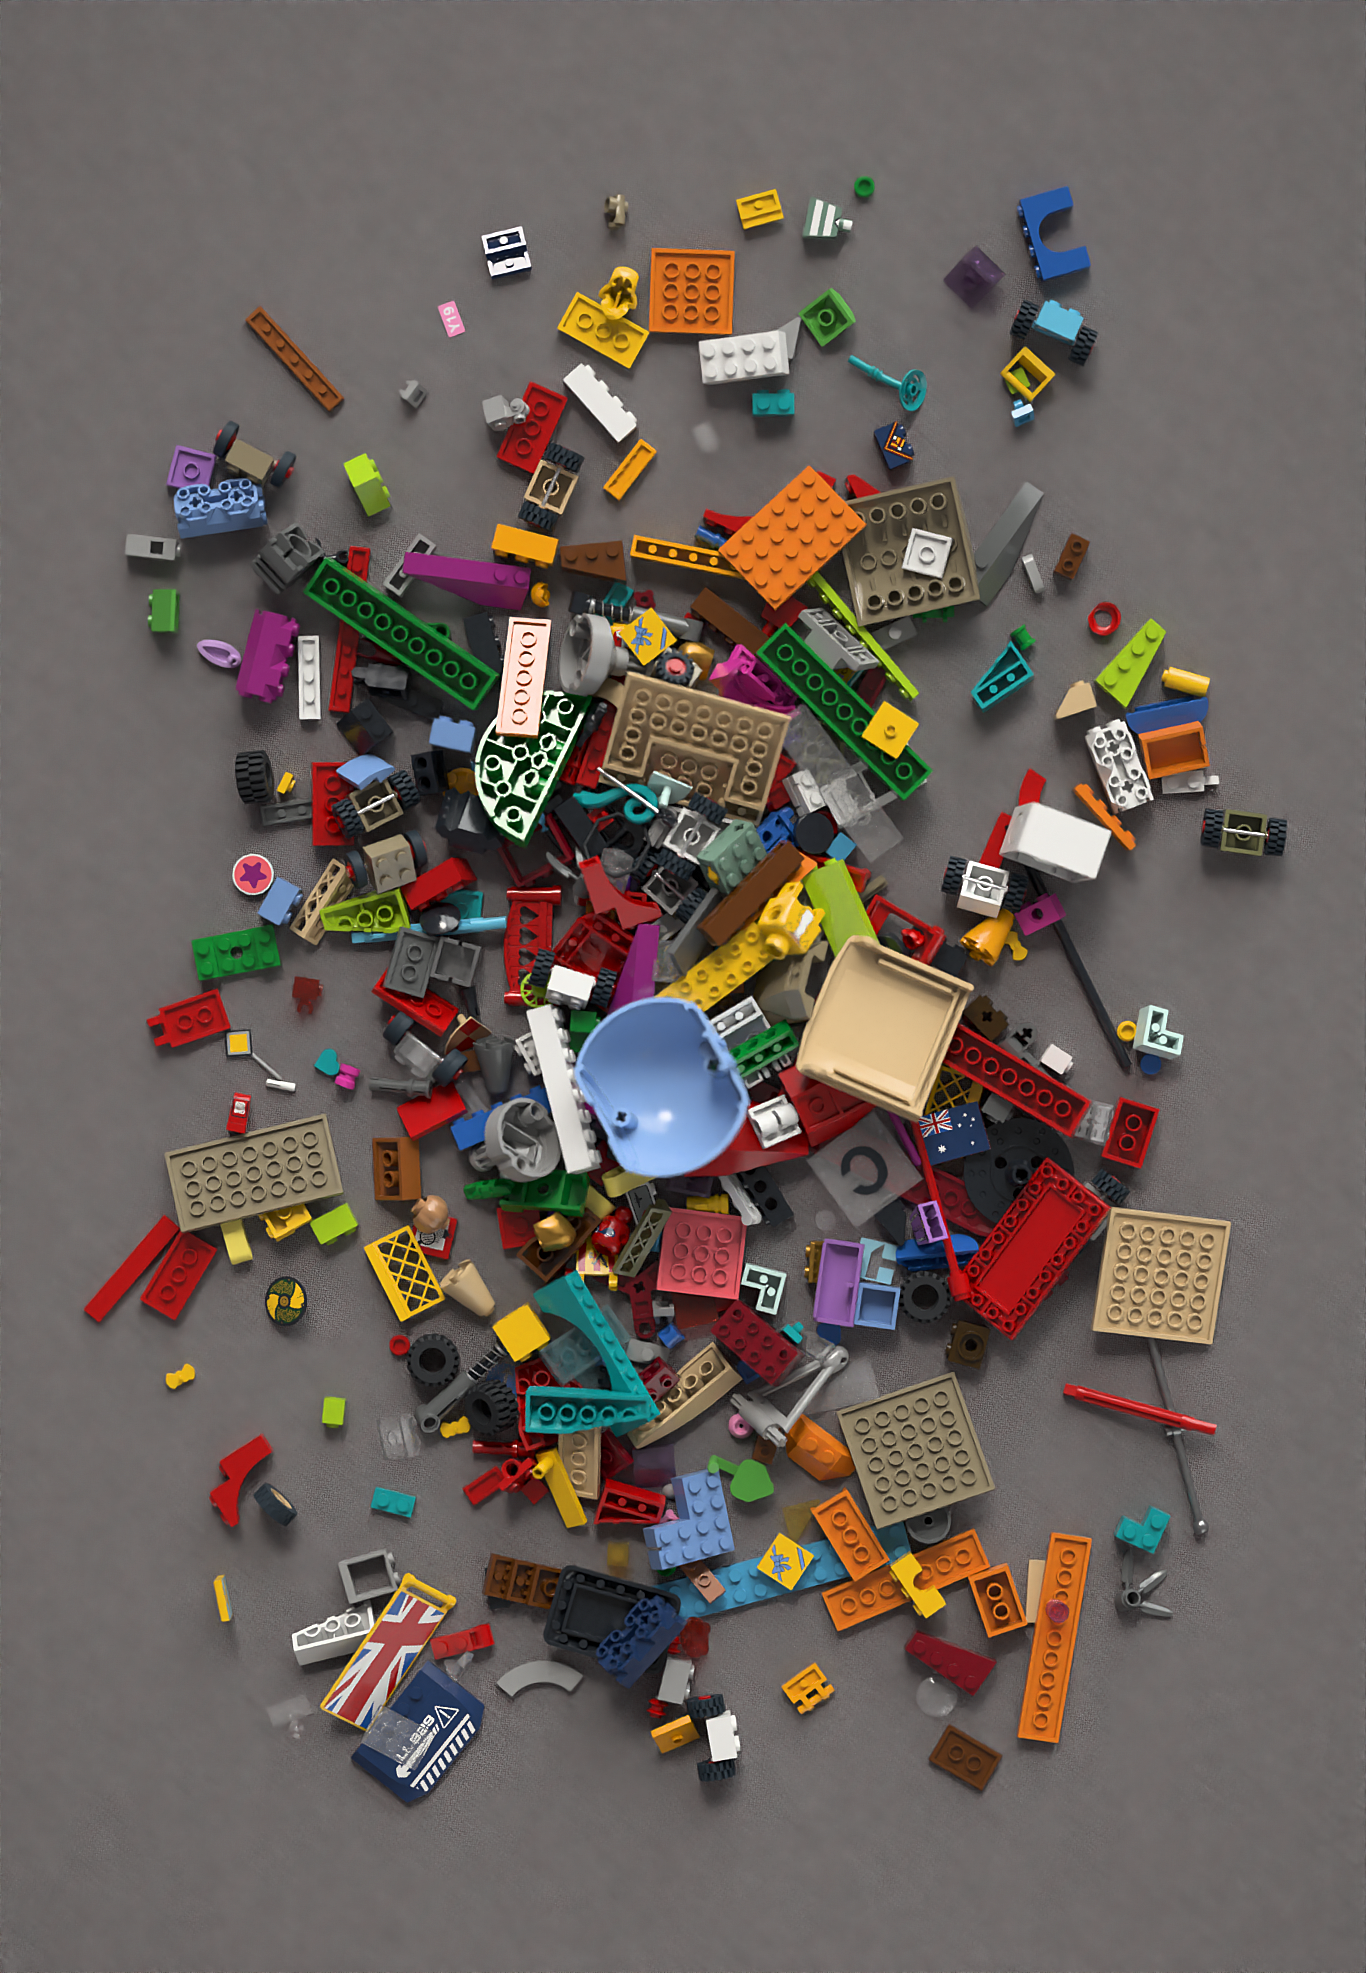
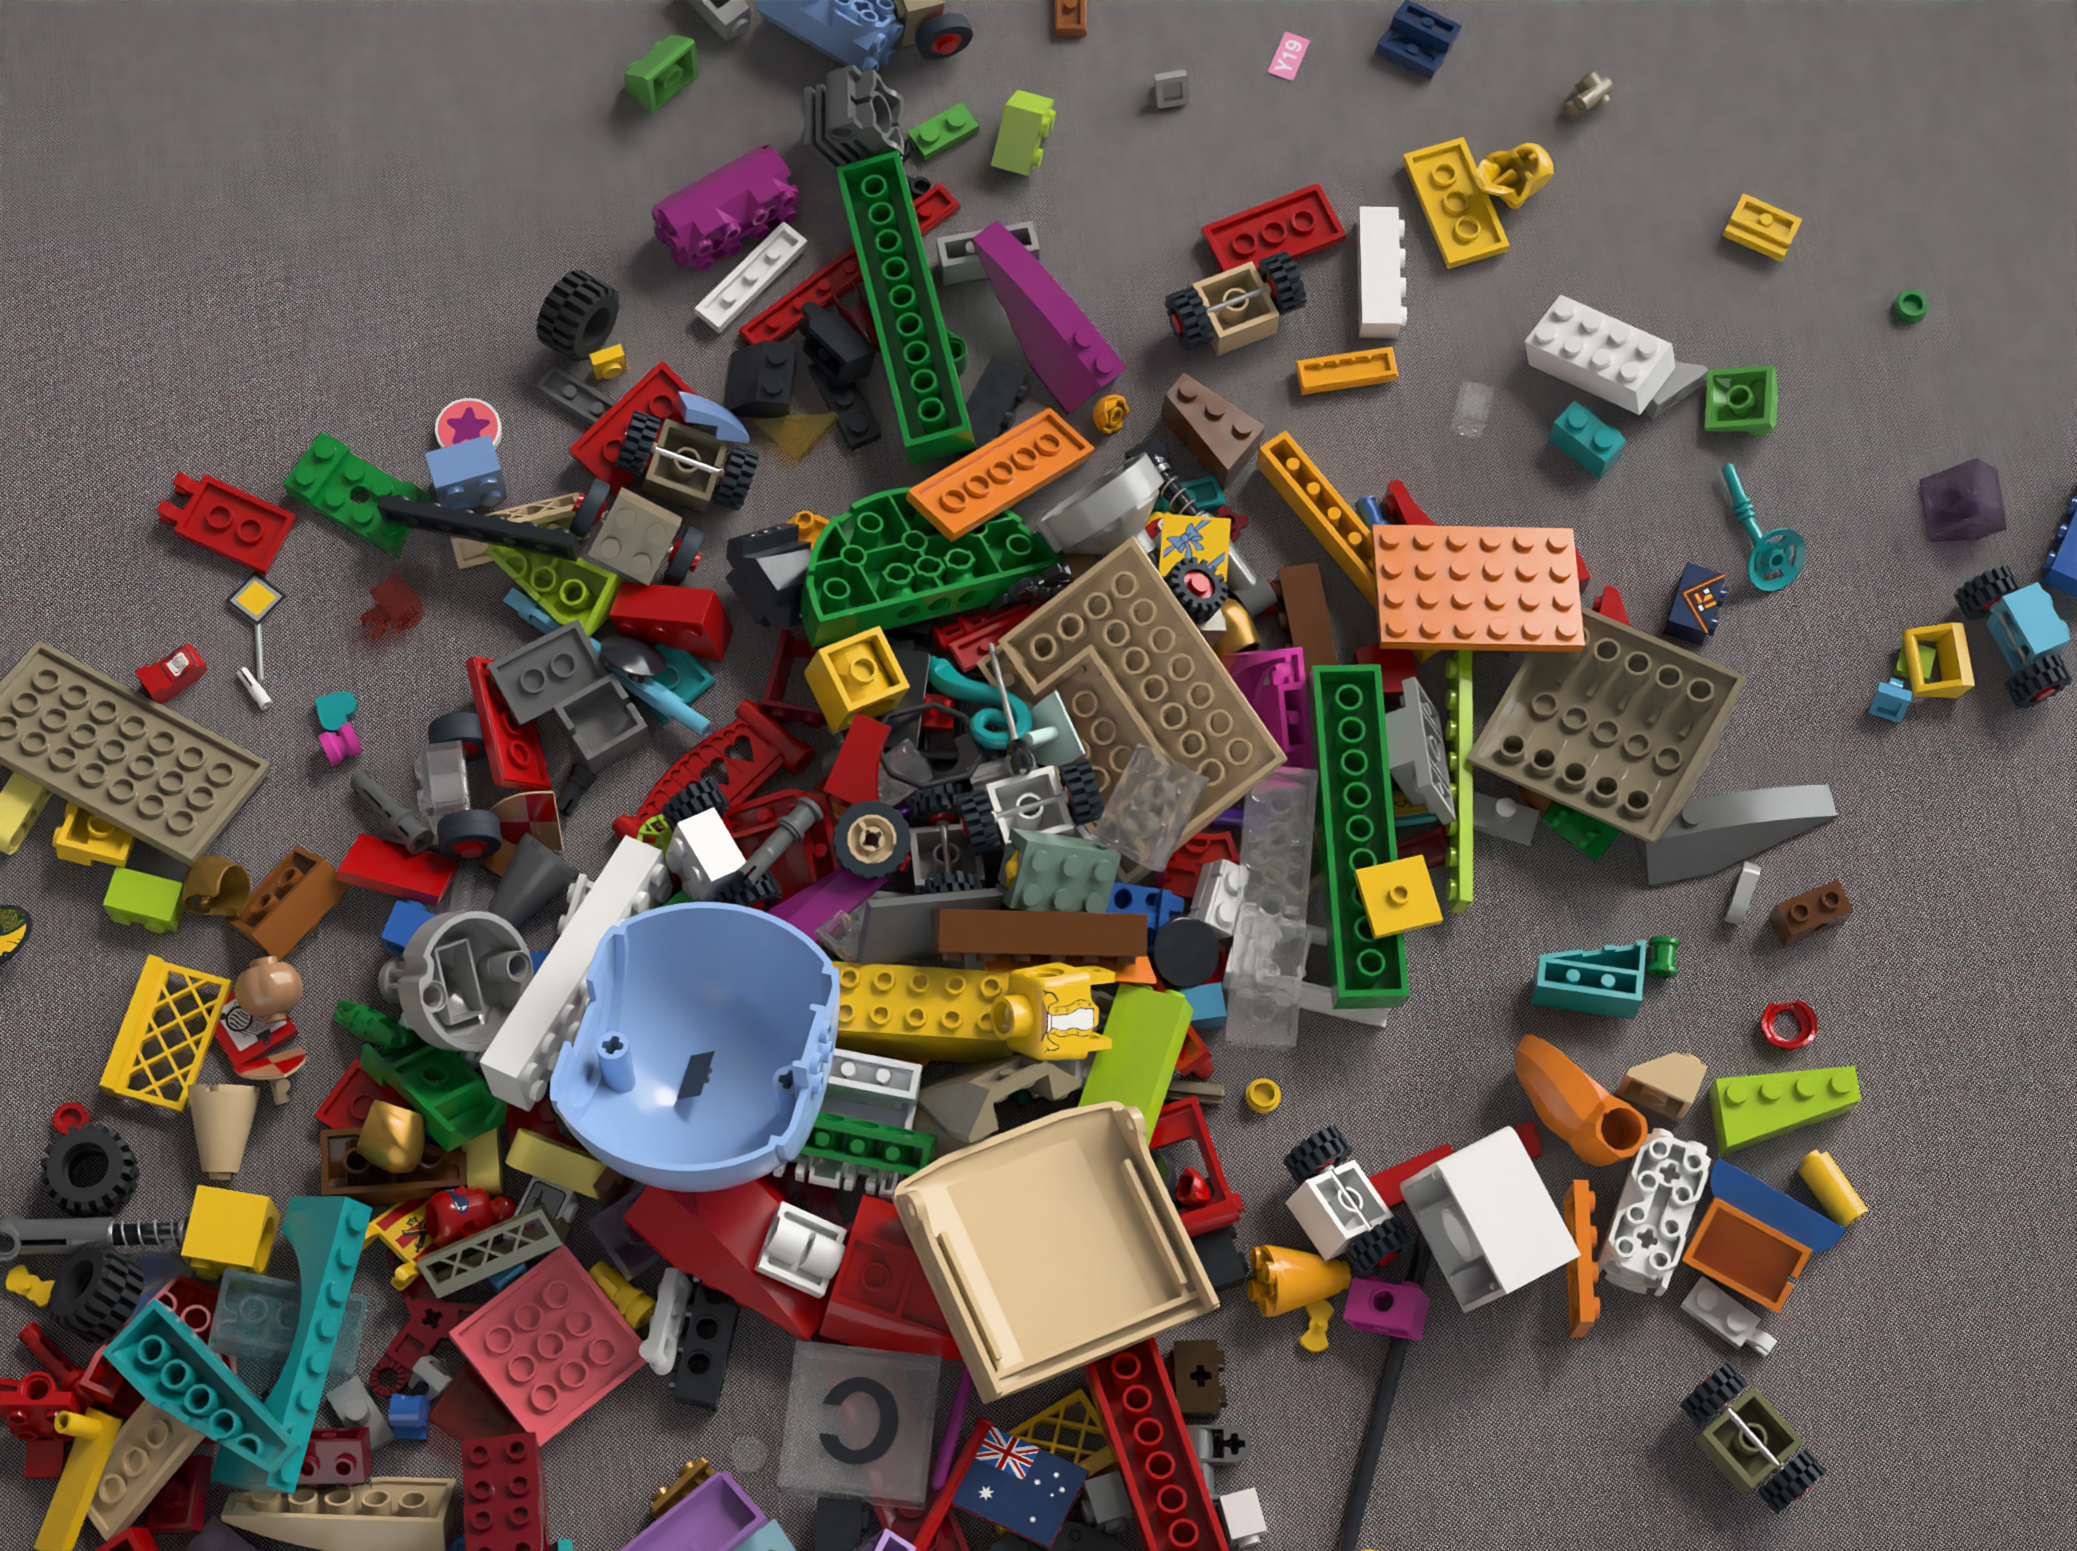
camera: 35 degrees right, 20 degrees down
(219, 653) = (674, 165): lavender arm -> none
(306, 927) = (486, 529): none -> black plate
(325, 515) = (943, 131): none -> bright green plate
(360, 1190) = (216, 887): none -> pearl gold piece
(405, 737) = (797, 432): none -> clear yellow tile
(430, 772) = (786, 489): black brick -> none
(452, 735) = (851, 458): medium blue brick -> none
(467, 1245) = (275, 1069): none -> shield
(501, 415) = (1251, 184): light grey brick -> none
(524, 546) = (1143, 339): light orange brick -> none
(561, 848) = (856, 678): none -> yellow brick
(597, 944) = (789, 831): none -> dark grey pin
(632, 907) = (867, 860): none -> black wheel
(660, 1089) = (696, 1075): none -> black piece
(691, 291) = (1600, 244): orange plate -> none
(747, 791) = (1150, 807): none -> clear brick
(770, 1285) = (597, 1469): light aqua brick -> none
(824, 221) = (1829, 299): torso -> none
(902, 863) = (1263, 1095): none -> yellow plate
(927, 553) = (1631, 746): white tile -> none
(1046, 749) = (1576, 1106): none -> orange piece

